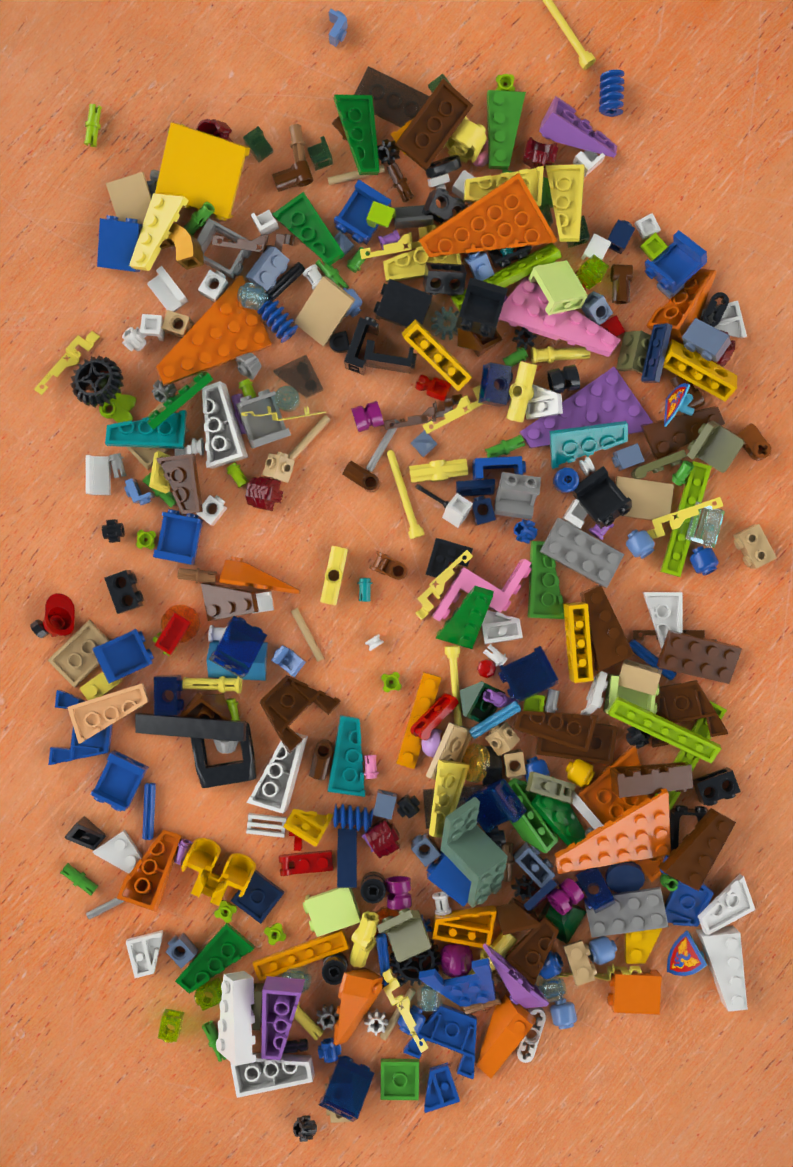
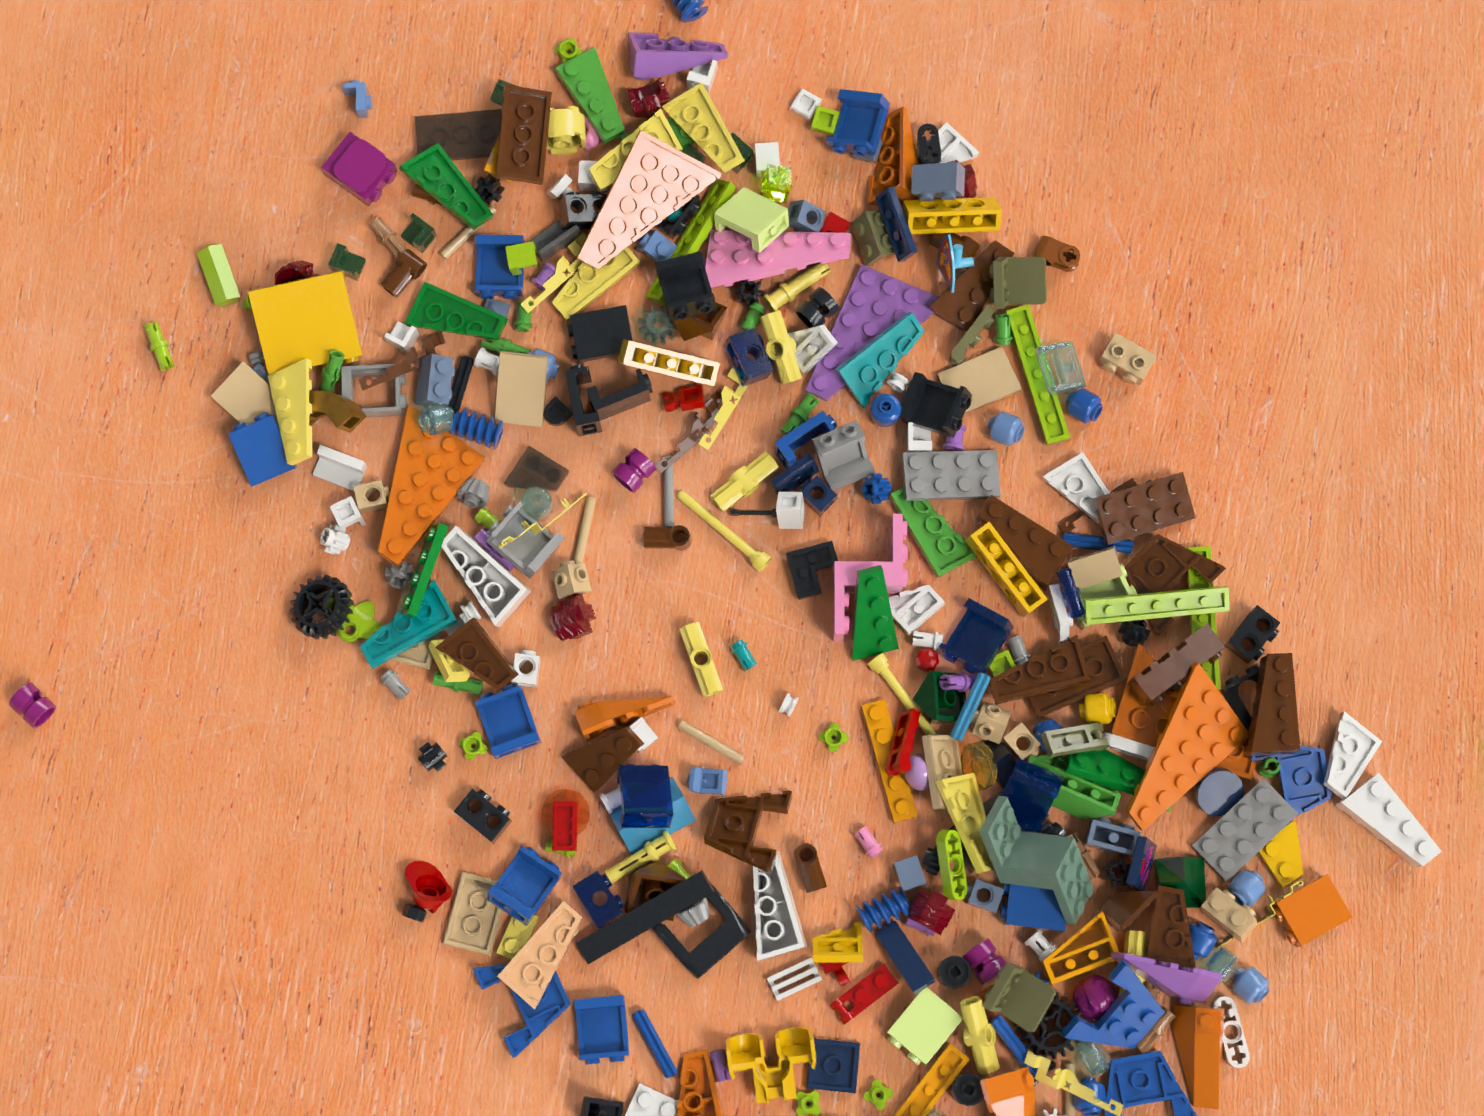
camera: 30 degrees left, 10 degrees down
(73, 360) = (280, 600): light yellow piece -> none
(98, 475) = (381, 707): white panel -> none
(133, 491) = (428, 701): medium blue bracket -> none
(163, 98) = (218, 275): none -> lime piece
(197, 575) = (553, 750): medium nougat axle -> none
(213, 294) = (391, 443): white brick -> none
(237, 475) = (531, 616): lime pin -> none
(306, 80) = (360, 169): none -> magenta brick
(347, 760) = (838, 850): teal wing -> none
(387, 566) = (752, 614): dark orange piece -> none
(400, 182) = (520, 212): reddish brown axle -> none
(420, 807) = (948, 882): none -> lime beam
(423, 443) = (711, 463): sand blue tile -> none
(441, 579) = (823, 605): light yellow piece -> none
(443, 166) = (556, 169): black beam -> none
(445, 273) = (626, 276): black brick -> none
(565, 896) = (1166, 849): magenta wheel -> none
(603, 898) = (1184, 814): clear blue brick -> none
(612, 686) = (1071, 593): none -> clear blue pin
(620, 236) = (783, 130): dark blue brick -> none
(621, 277) = (812, 171): reddish brown piece -> none
(627, 457) = (935, 348): sand blue brick -> none
(682, 514) = (1029, 370): light yellow piece -> none
(685, 957) = (1339, 838): shield -> none

